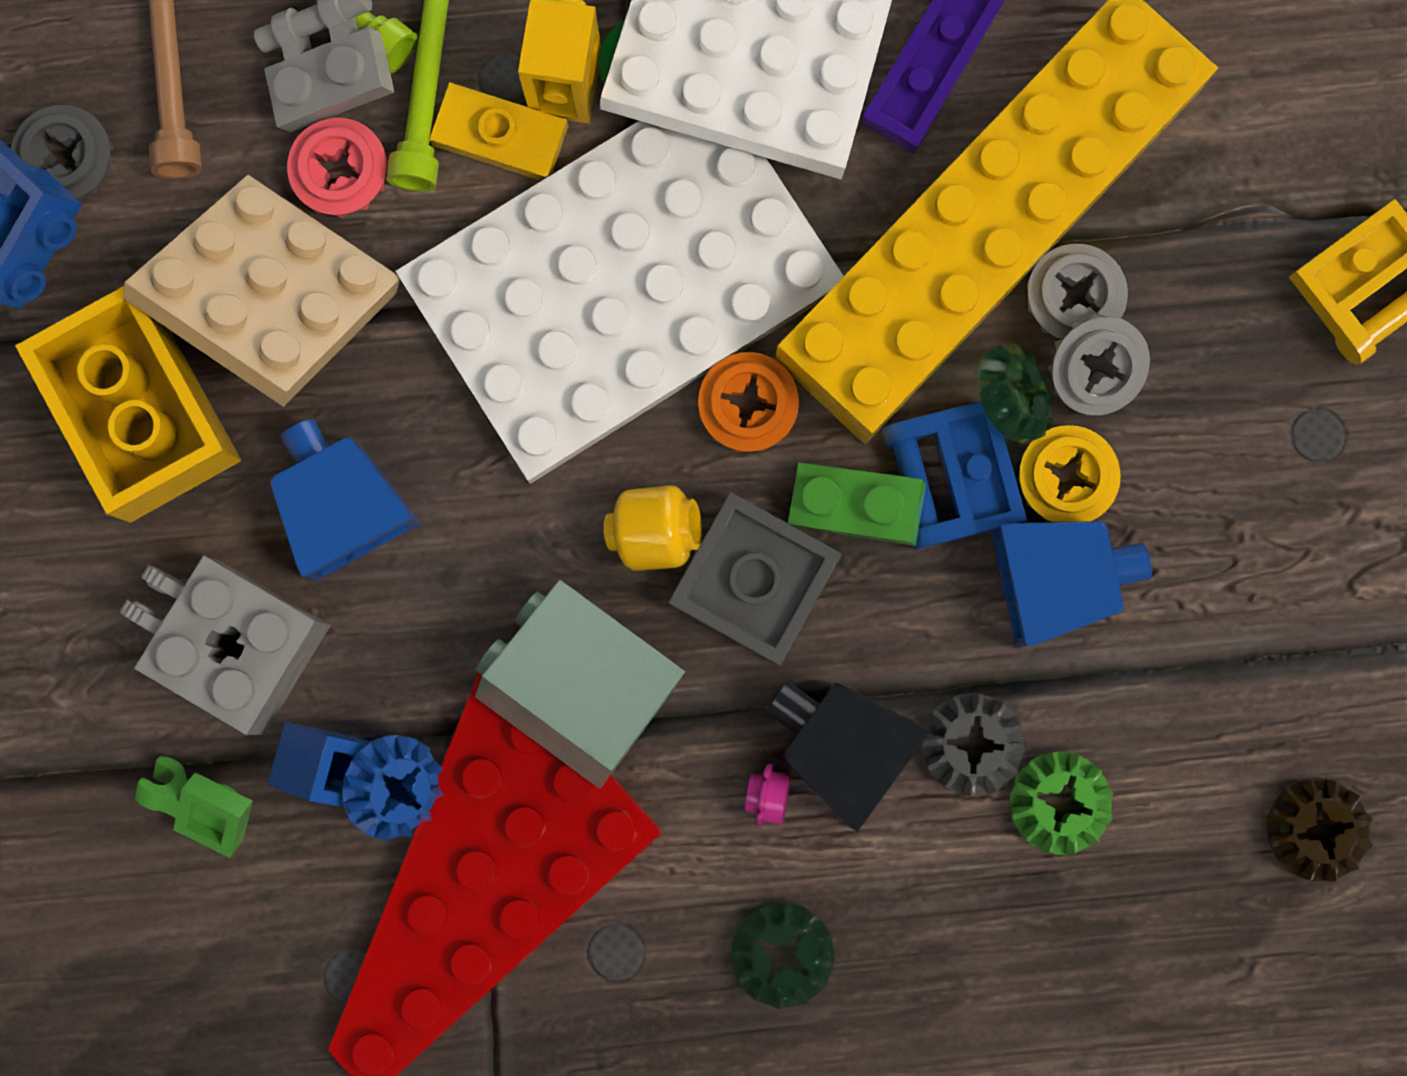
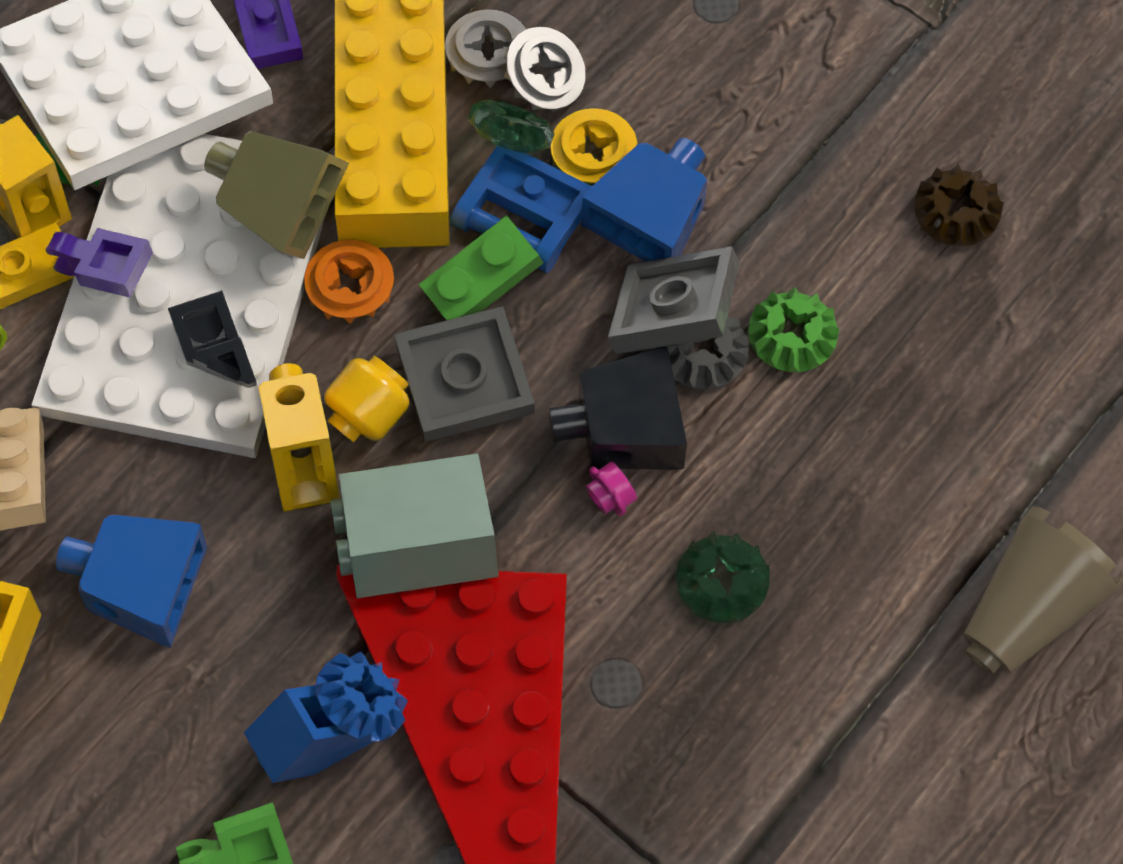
camera: 45 degrees left, 20 degrees down
(191, 642) = (123, 703): light grey hinge -> none
(554, 528) = (293, 422): none -> yellow torso
(558, 204) = (106, 263): none -> plate
(578, 358) = (211, 339): none -> black slope
(749, 275) = (276, 188): none -> olive torso
(980, 694) = (674, 300): none -> dark grey plate

